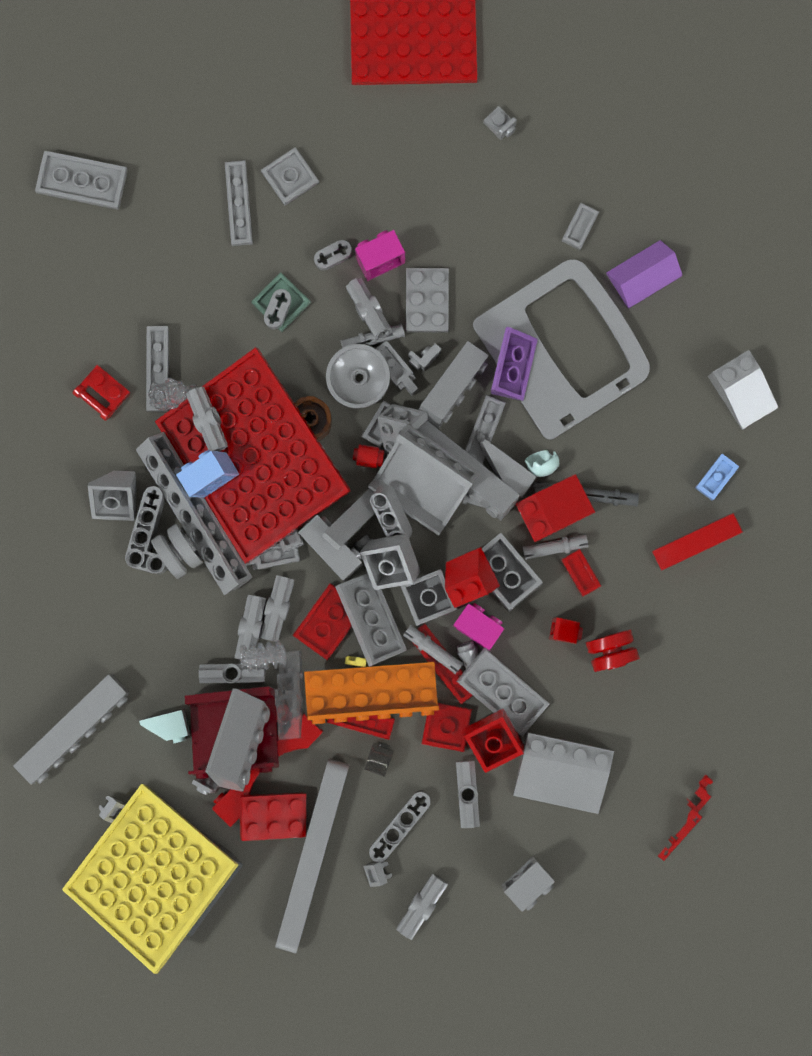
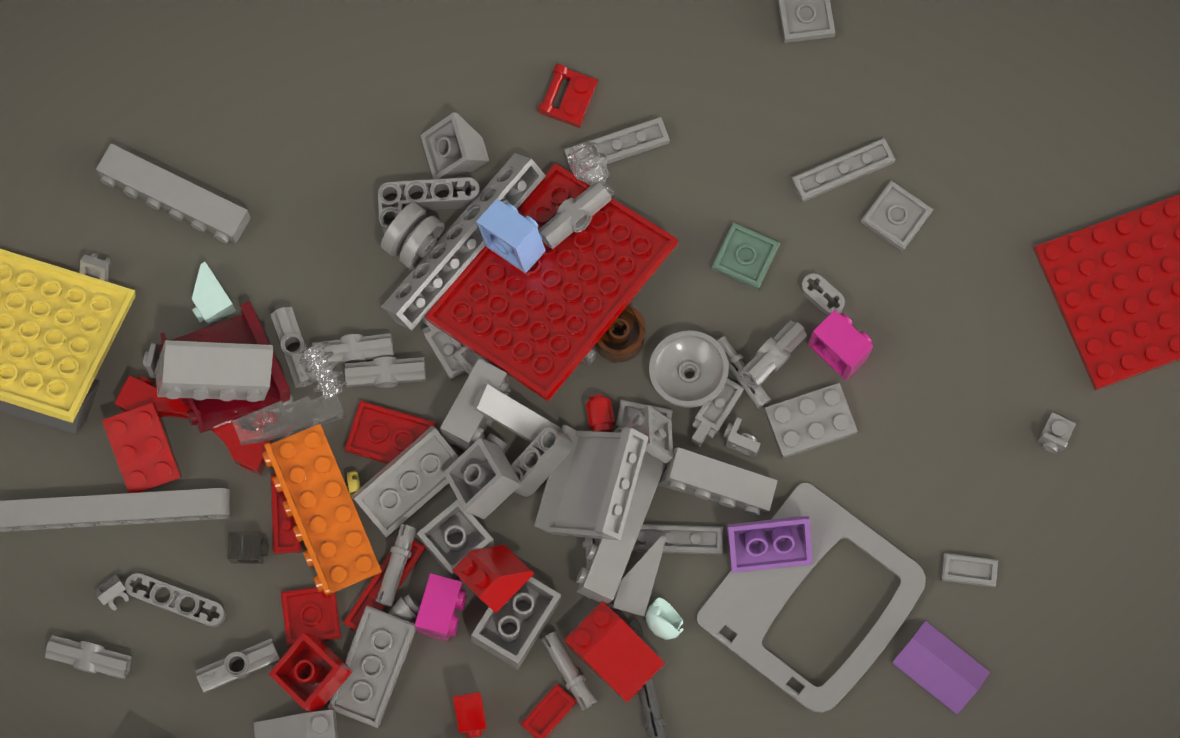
camera: 70 degrees right, 10 degrees down
(273, 307) = (734, 247): light grey beam -> none

